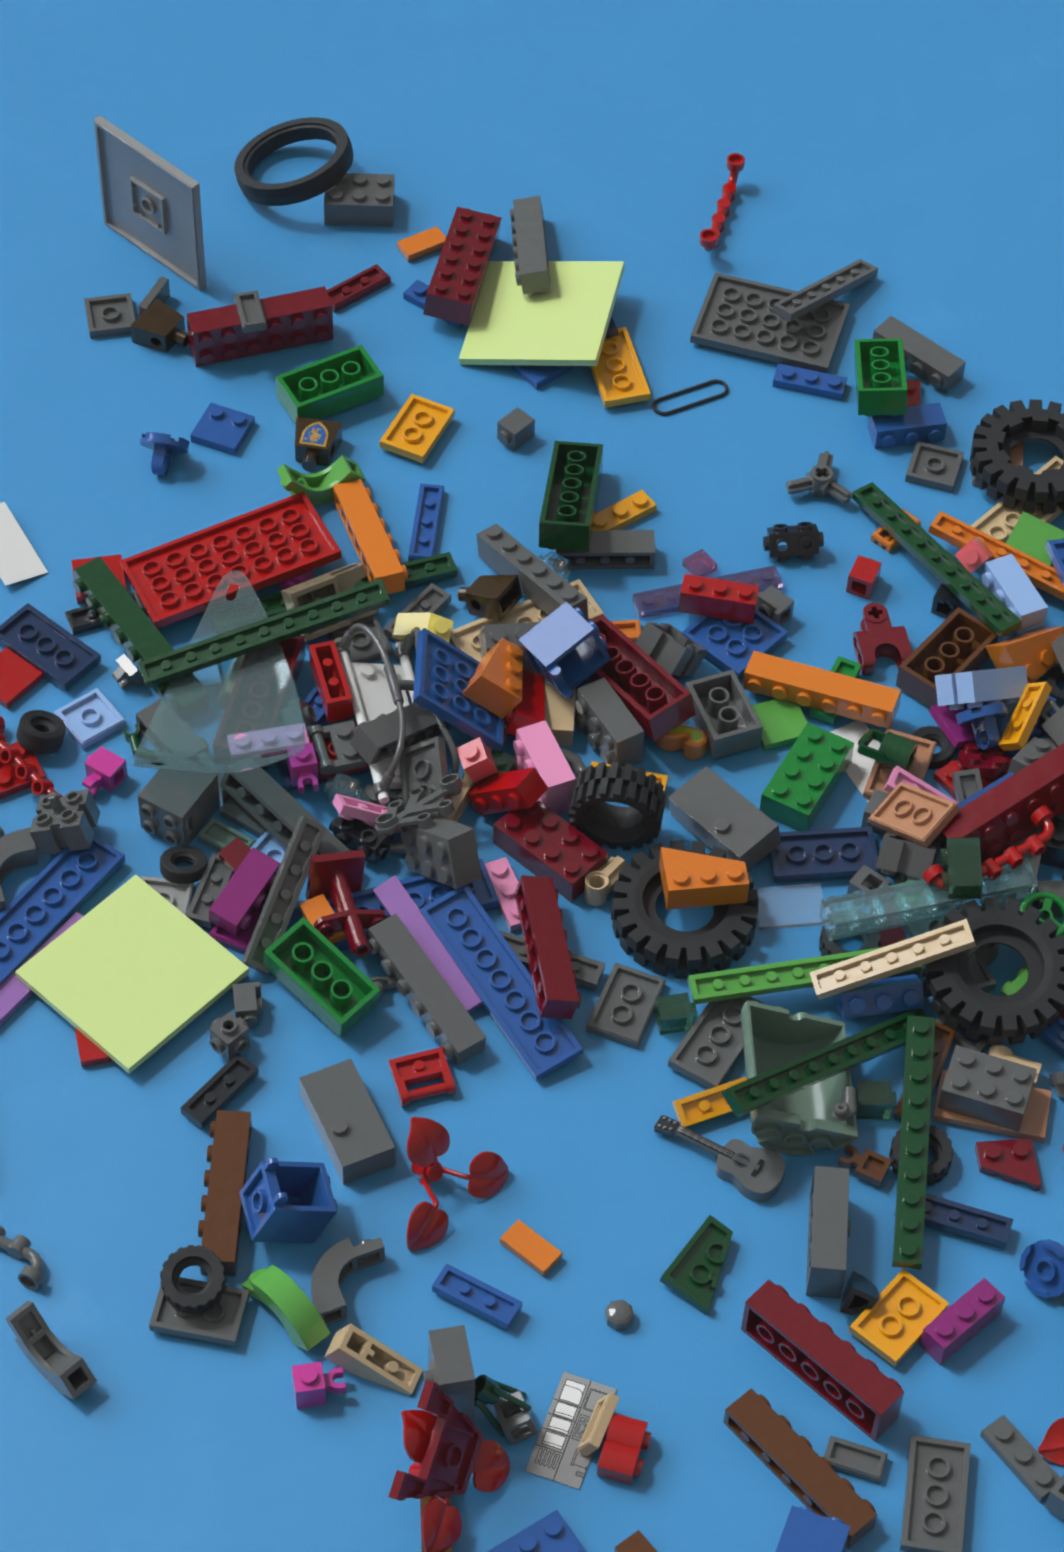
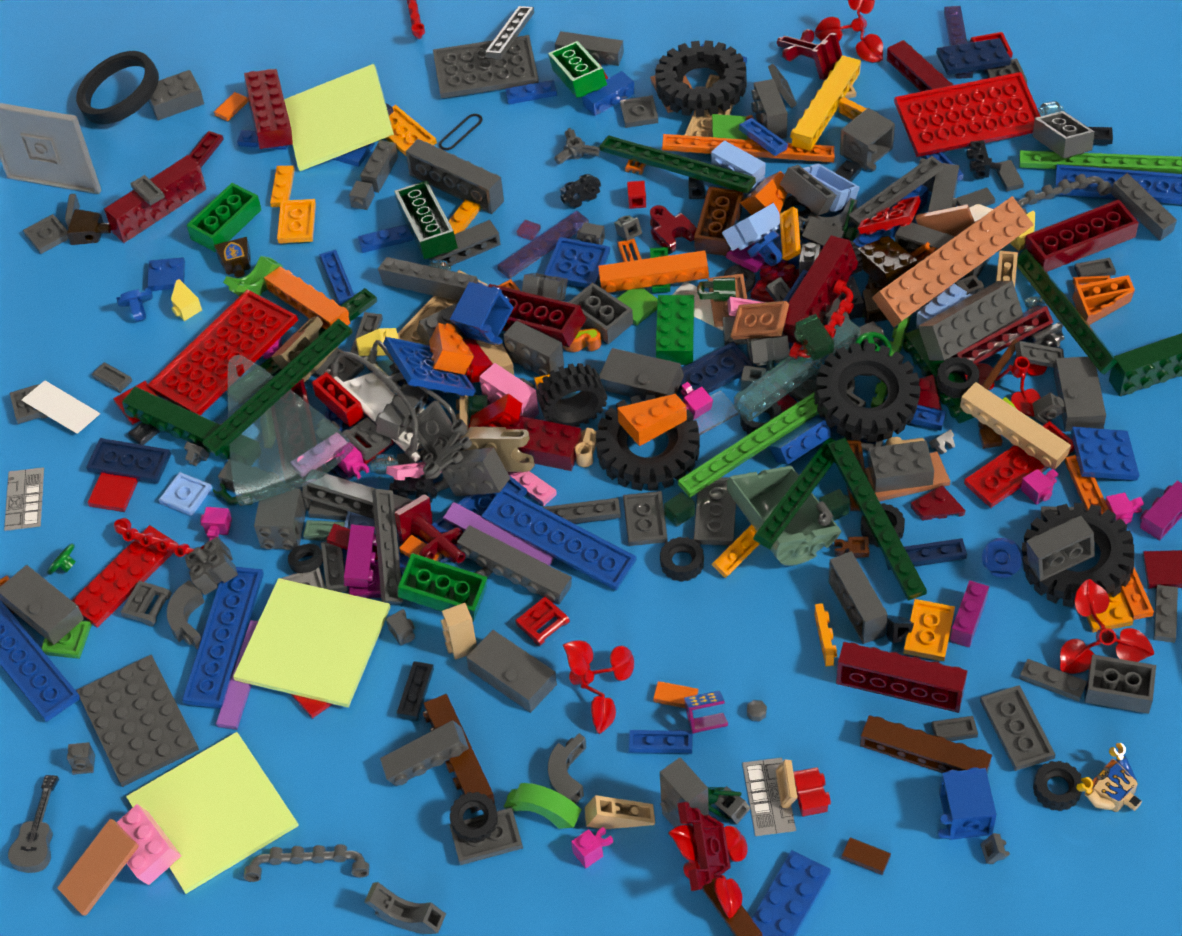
camera: 20 degrees left, 0 degrees up
(41, 732) = (158, 516): black tyre -> none
(86, 532) = (112, 377): none -> dark grey tile
(181, 1173) = (424, 753): none -> dark grey brick
(222, 474) = (184, 301): none -> light yellow slope
(229, 1036) = (402, 652): dark grey brick -> none
(288, 1201) = (507, 738): blue container -> none
(306, 1040) = (458, 631): none -> tan brick
(427, 373) = (282, 185): none -> light orange plate
(477, 759) = (464, 406): coral brick -> none
(491, 595) = (408, 303): dark brown torso -> none
(494, 832) = (505, 444): none -> dark tan brick
(510, 497) = (385, 238): none -> blue plate
(530, 245) = (305, 78): dark grey brick -> none
(545, 1299) = (707, 722): none -> magenta piece
(547, 947) = (577, 503): dark red brick -> none
(559, 399) = (380, 164): none -> dark grey brick
(636, 1098) = (686, 572): none -> black tyre
(644, 453) = (455, 175): none -> dark grey brick
(699, 1264) = (787, 655): dark green wing -> none
(718, 598) = (556, 243): red brick -> none
(752, 1170) = (786, 583): dark grey piece -> none
(762, 1258) = (825, 635): none -> light orange plate
(775, 884) = (696, 401): none -> dark pink brick
(814, 635) = (635, 248): none -> orange tile
(826, 611) = (626, 224): none -> dark grey brick
(892, 959) = (802, 412): tan plate -> none
(974, 555) = (700, 151): coral brick -> none

